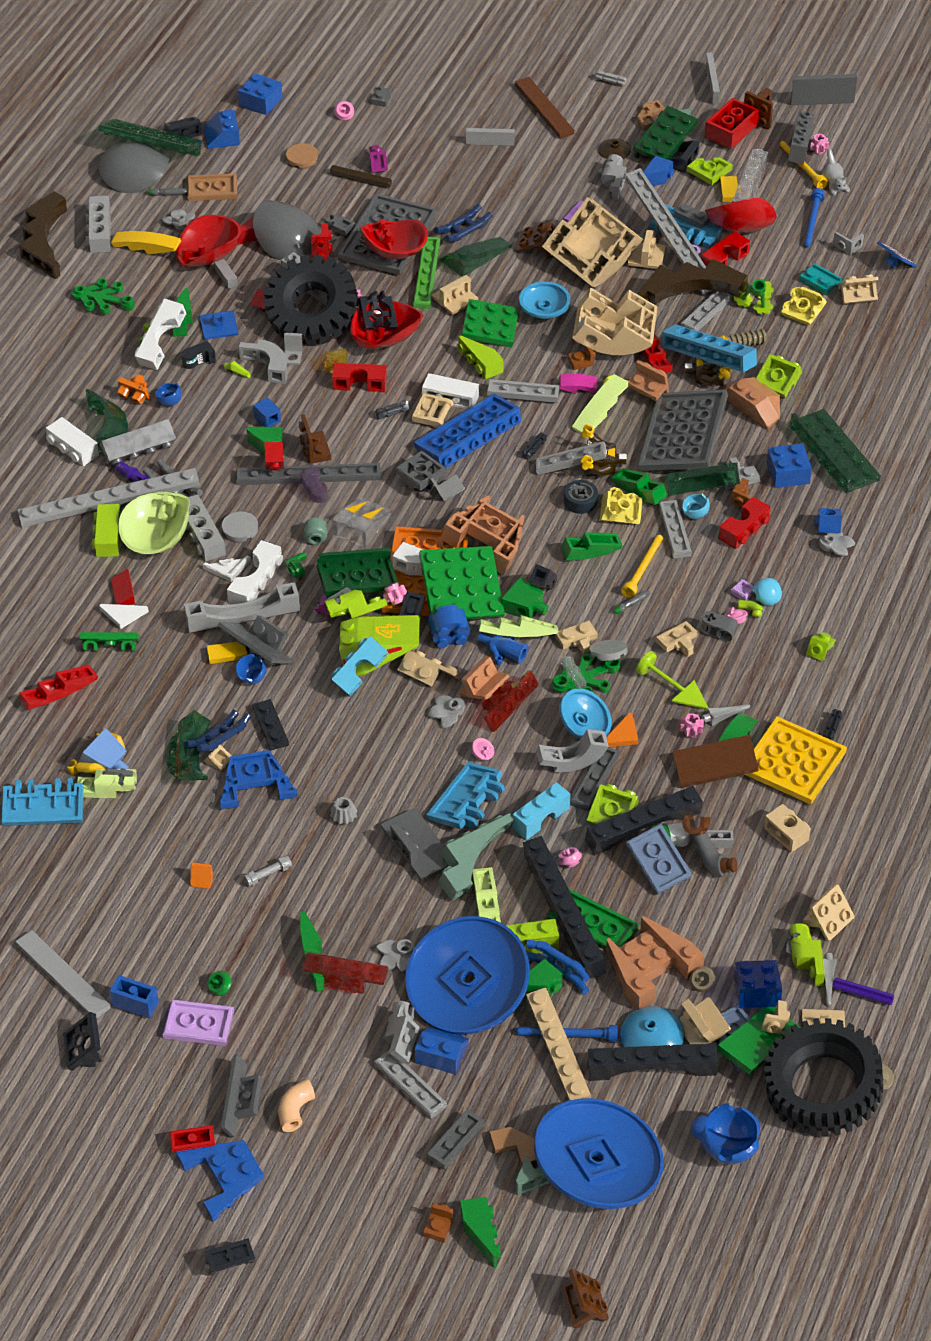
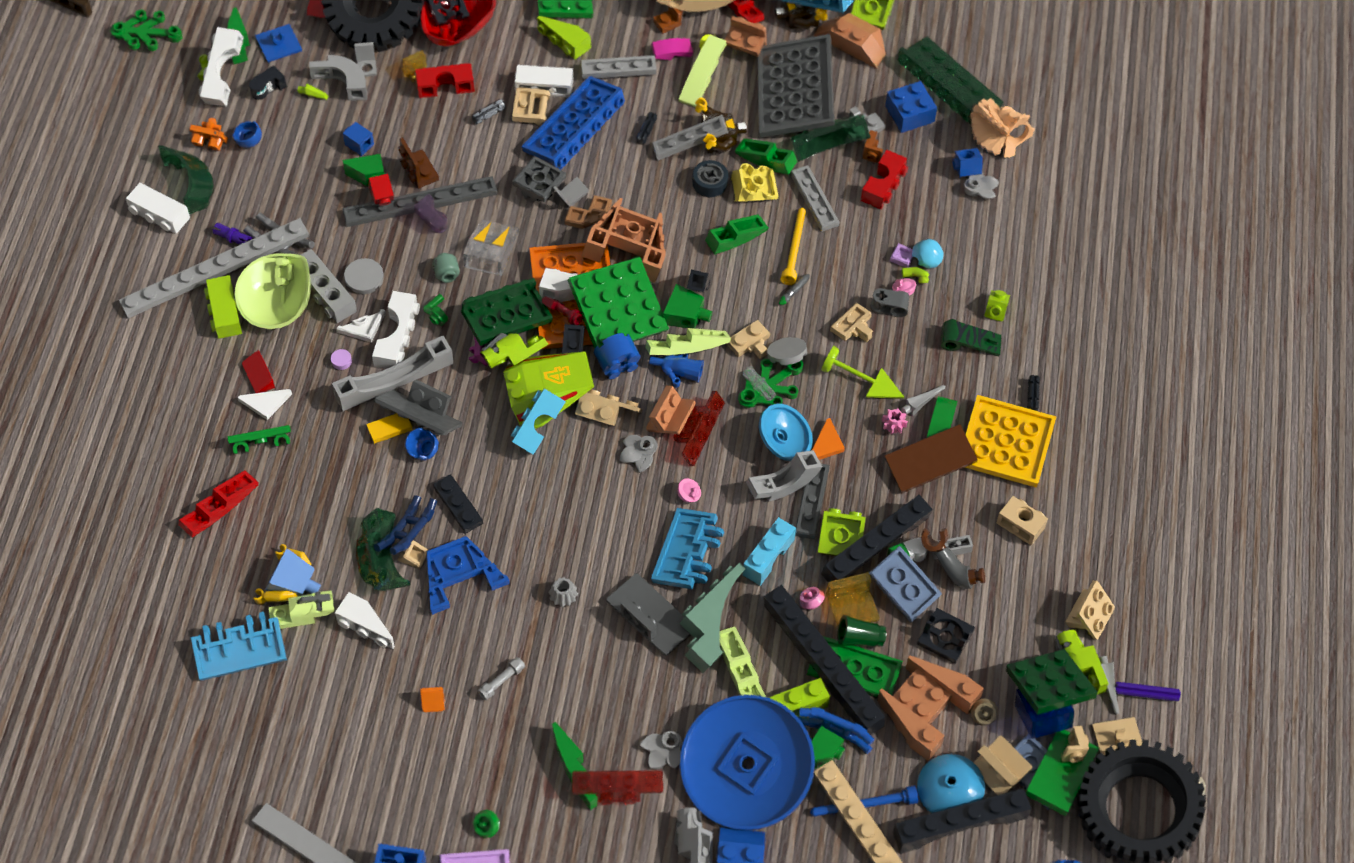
camera: 15 degrees left, 10 degrees up
(137, 442) = (229, 197): flat silver brick -> none
(156, 798) = (360, 617): none -> white slope
(200, 590) = (341, 359): none -> lavender tile
(394, 593) = (551, 328): bright pink gear -> none
(417, 586) = (574, 316): none -> dark red hinge
(448, 508) = (584, 218): none -> medium nougat tile
(605, 891) = (860, 632): none -> dark green plant
(606, 864) = (852, 598): none -> clear yellow bracket
(695, 506) = (830, 169): medium azure hair -> none
(698, 918) = (950, 654): none -> black piece
(768, 959) = (1051, 681): none -> dark green plate
(775, 662) = (957, 334): none -> dark green door
(862, 492) = (993, 127): none -> light nougat piece

